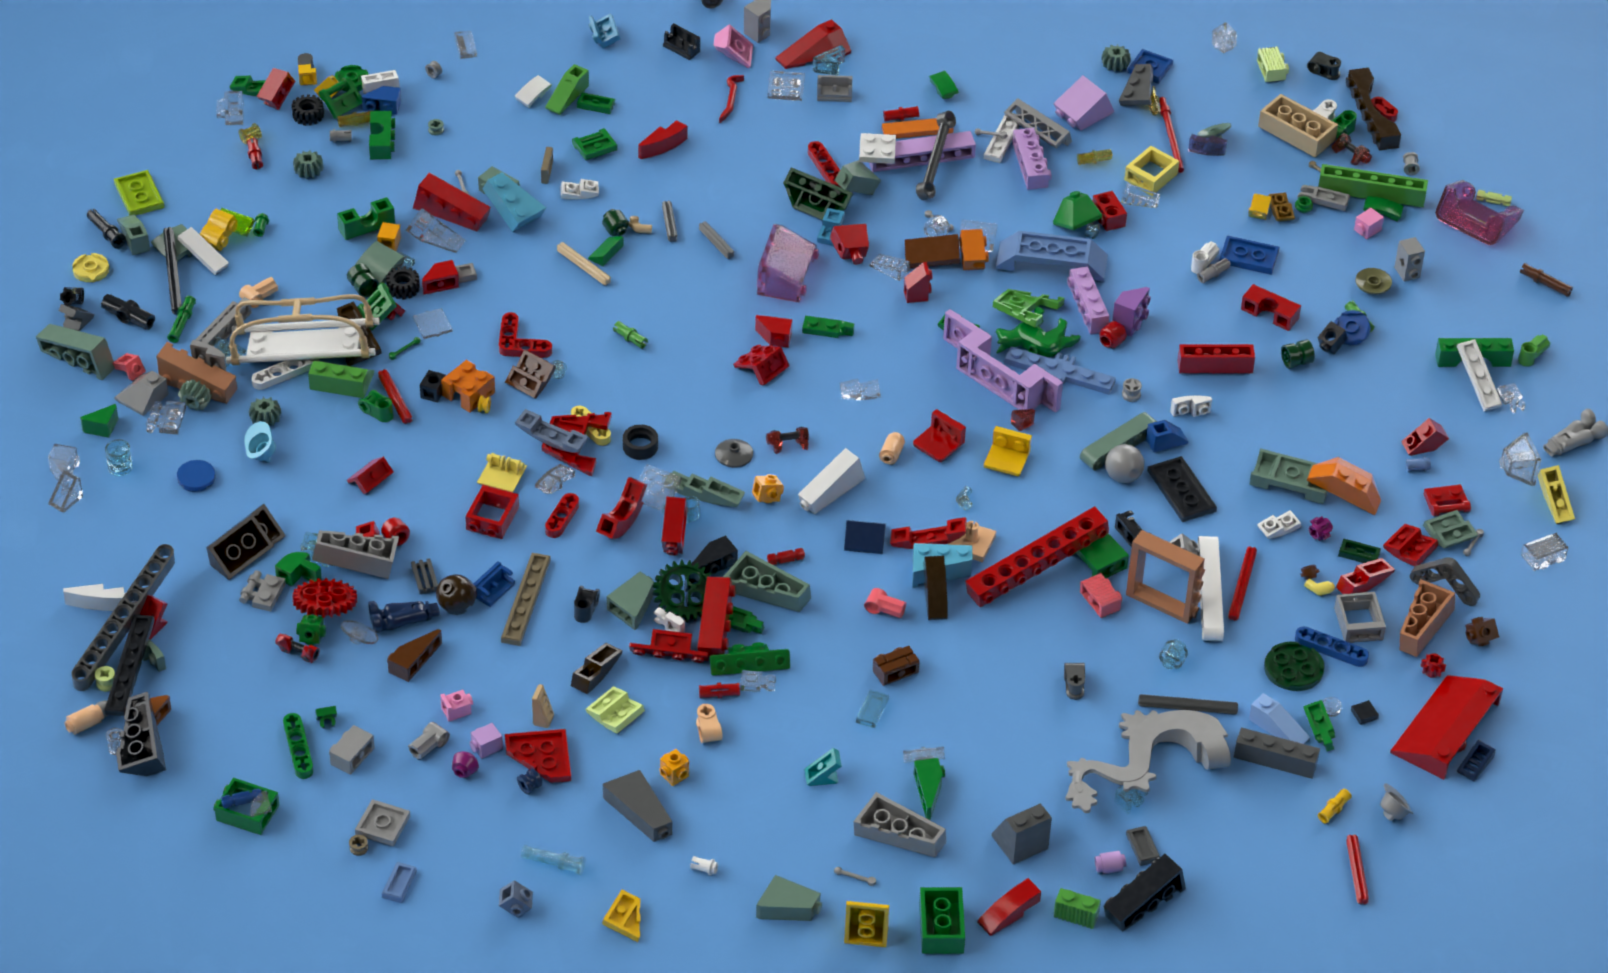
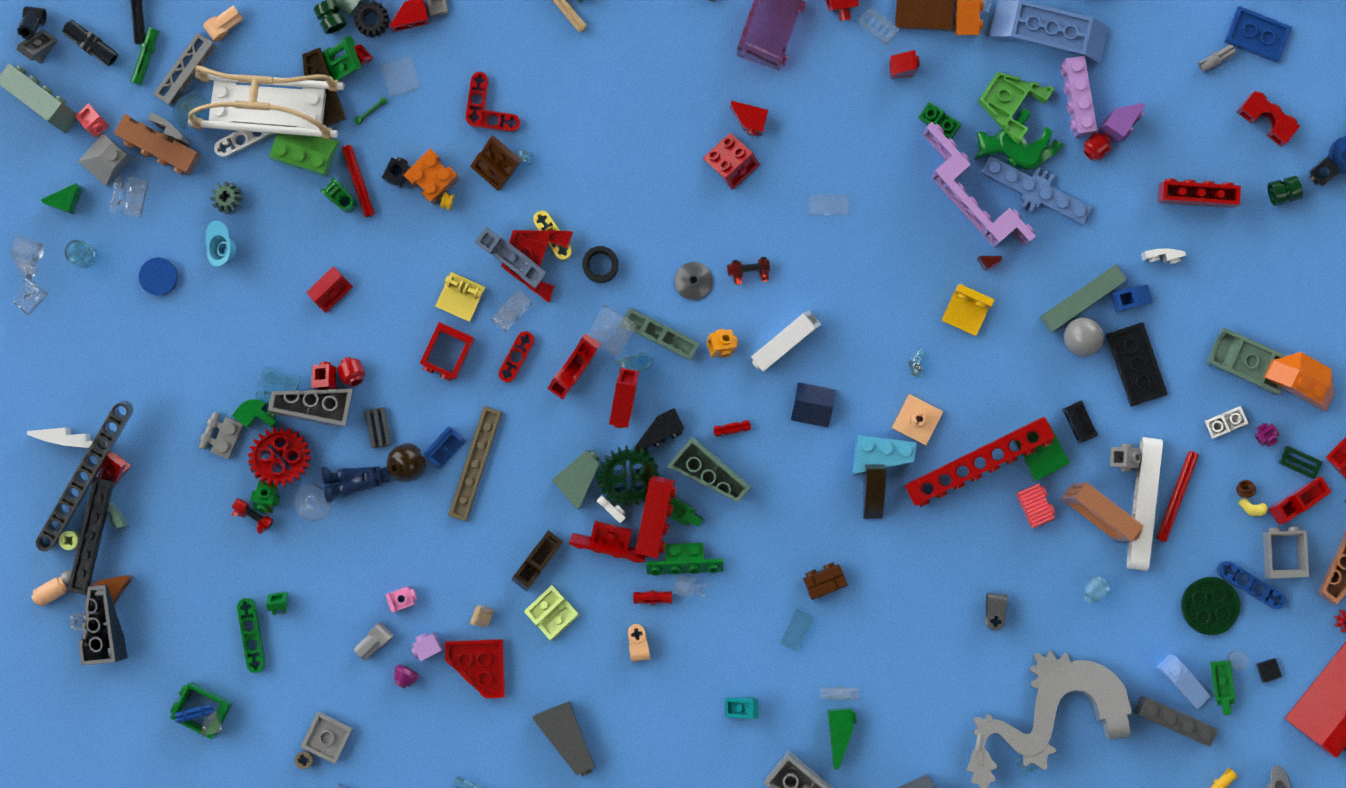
camera: 10 degrees right, 40 degrees up
(194, 395) = (156, 173): sand green gear -> none
(244, 542) = (205, 377): dark brown slope -> none
(351, 749) = (300, 647): light grey brick -> none
(413, 655) = (359, 537): reddish brown slope -> none
(529, 781) = (465, 699): dark blue wheel -> none
(585, 604) = (532, 476): black piece -> none
(630, 334) = (601, 110): bright green pin -> none
(674, 767) = (605, 688): light orange brick -> none
(827, 327) = (803, 111): green hinge -> none
(880, 602) = (820, 499): coral piece -> none
(892, 448) = (852, 292): light nougat head -> none
(905, 537) = (875, 415): red slope -> none
(941, 437) = (901, 282): red bracket -> none
(1131, 390) = (1108, 224): light grey wheel -> none
(1188, 704) = (1100, 647): dark grey axle -> none
(1203, 257) = (1210, 39): white piece -> none

